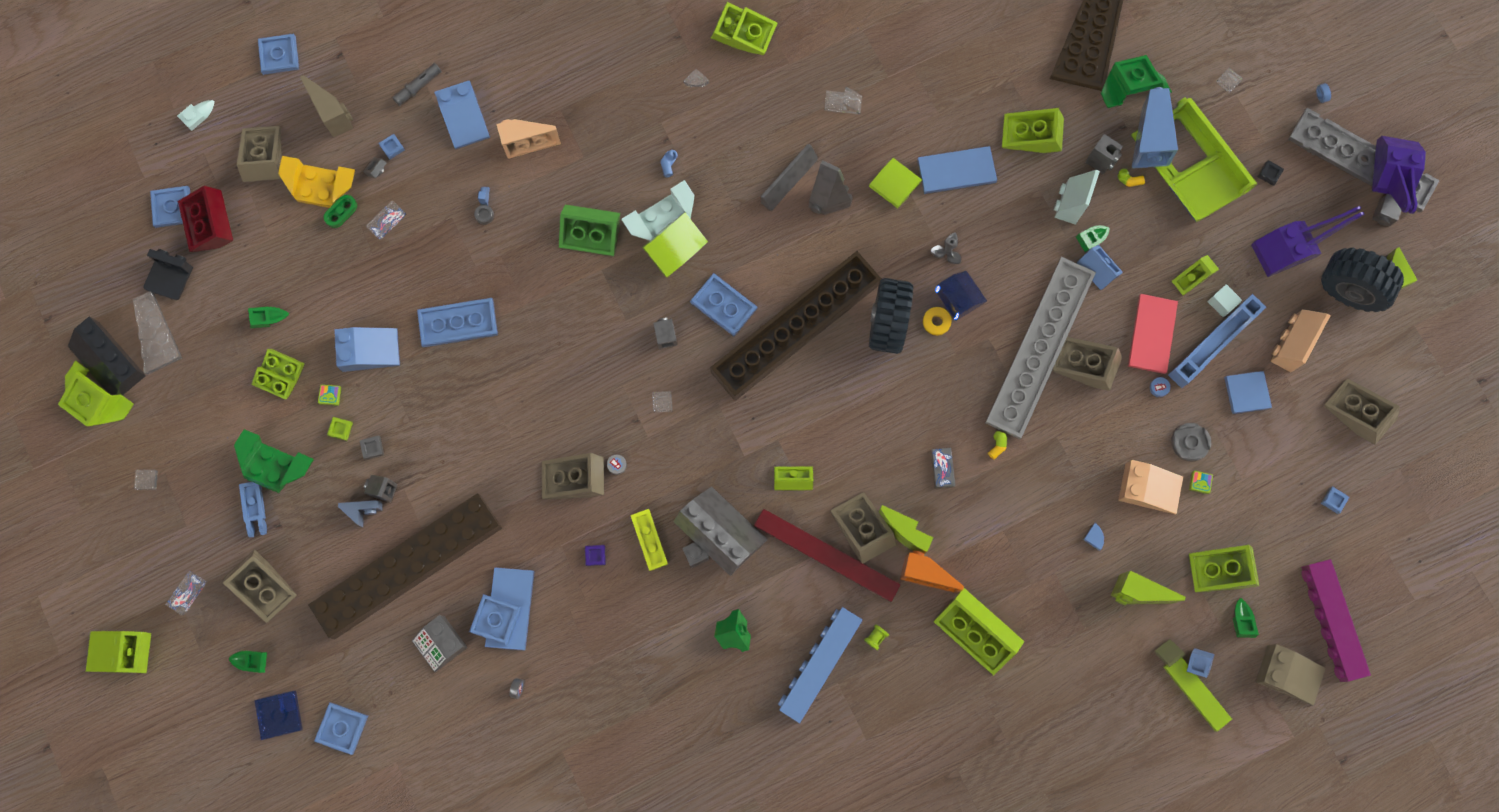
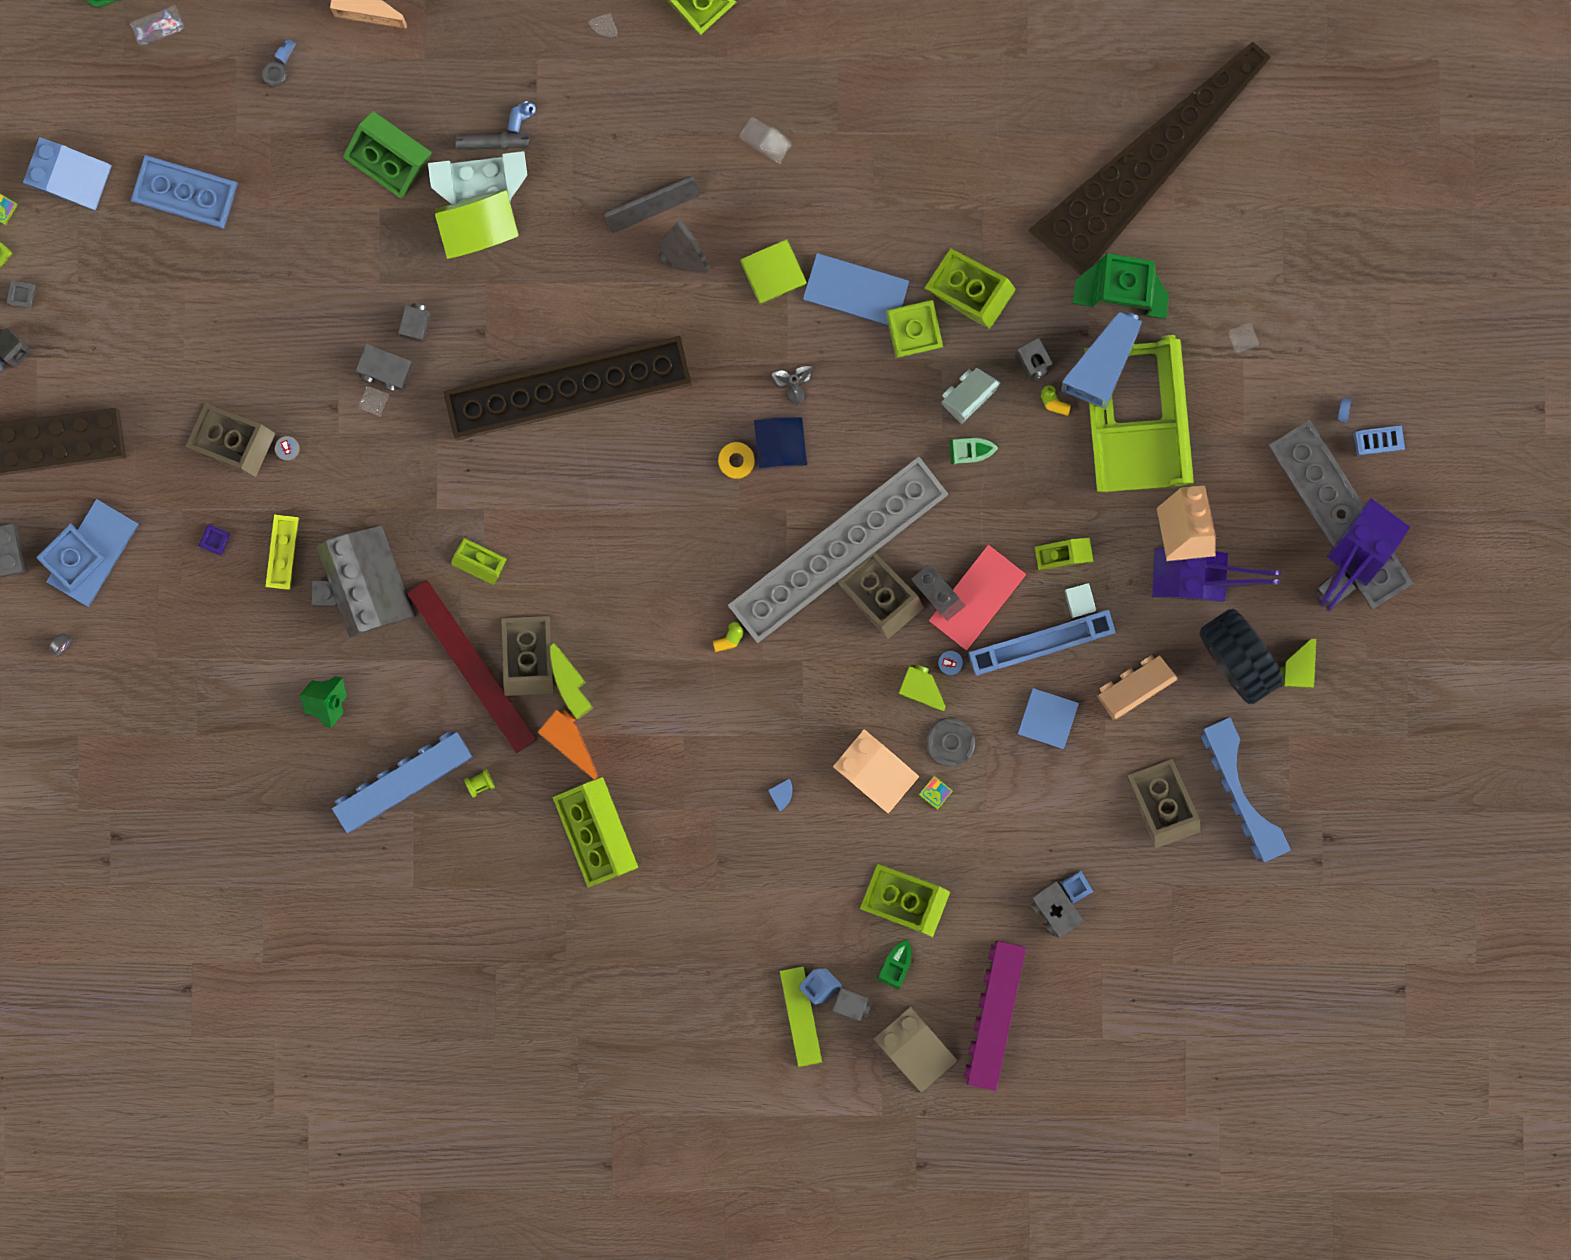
camera: 25 degrees right, 10 degrees up
(658, 187) = (492, 141): none -> flat silver pin
(658, 374) = (384, 367): none -> flat silver brick
(723, 304) = (500, 320): medium blue tile -> none
(891, 315) = (676, 432): black wheel -> none
(943, 468) = (653, 633): tile -> none
(1010, 175) = (914, 328): none -> lime tile
(1102, 264) = (962, 489): medium blue panel -> none
(1128, 340) = (938, 592): none -> flat silver brick
(1136, 589) = (793, 877): lime slope -> none
(1152, 413) = (921, 688): none -> lime slope
(1169, 653) = (793, 959): olive tile -> none
(1229, 665) = (851, 1004): none -> flat silver brick
(1270, 172) = (1226, 475): black tile -> none
(1272, 211) = (1187, 524): none -> light nougat slope
(1344, 523) = (1069, 916): none -> flat silver brick
(1346, 110) = (1359, 440): none -> medium blue slope
(1379, 351) = (1224, 744): none -> medium blue arch

